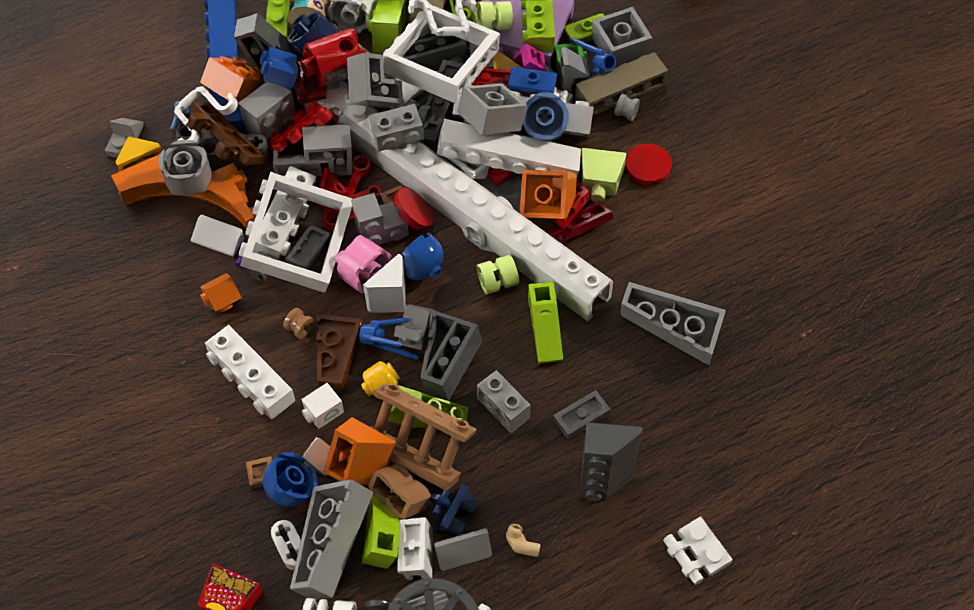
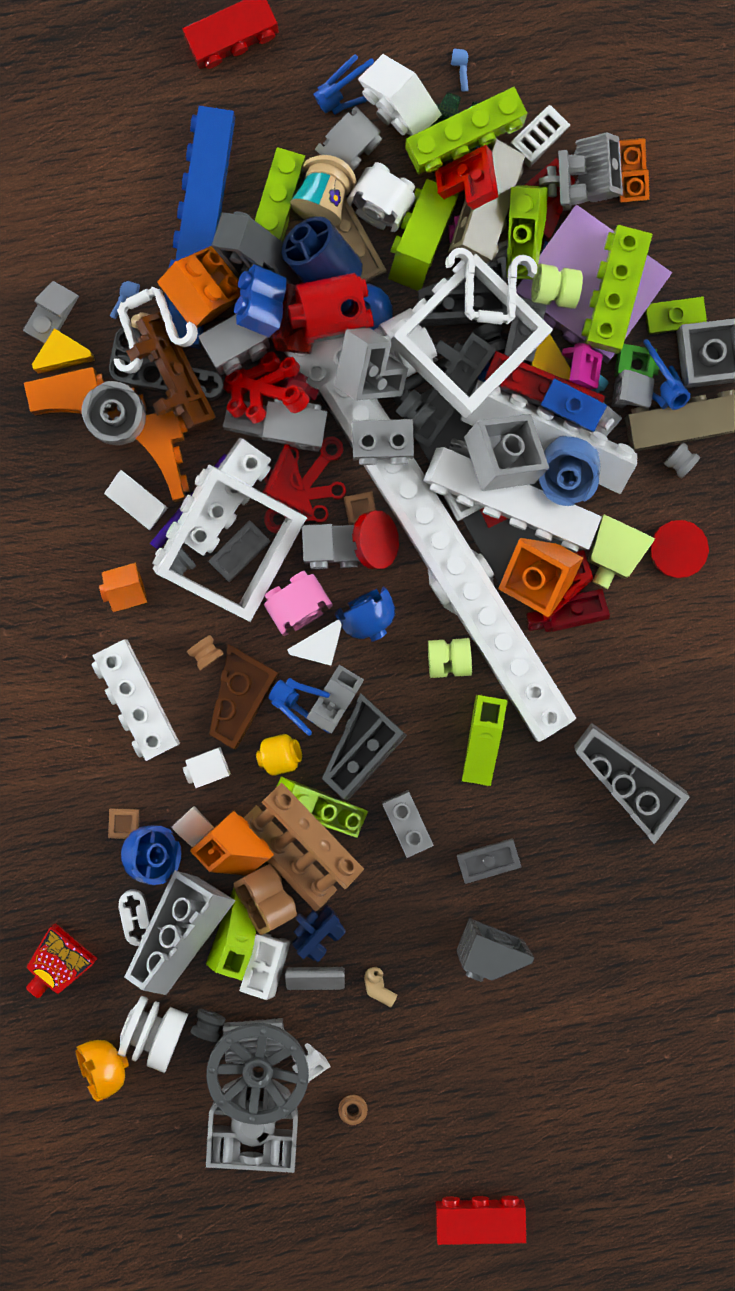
camera: 15 degrees right, 30 degrees up
(703, 545) = (566, 1045): white plate -> none

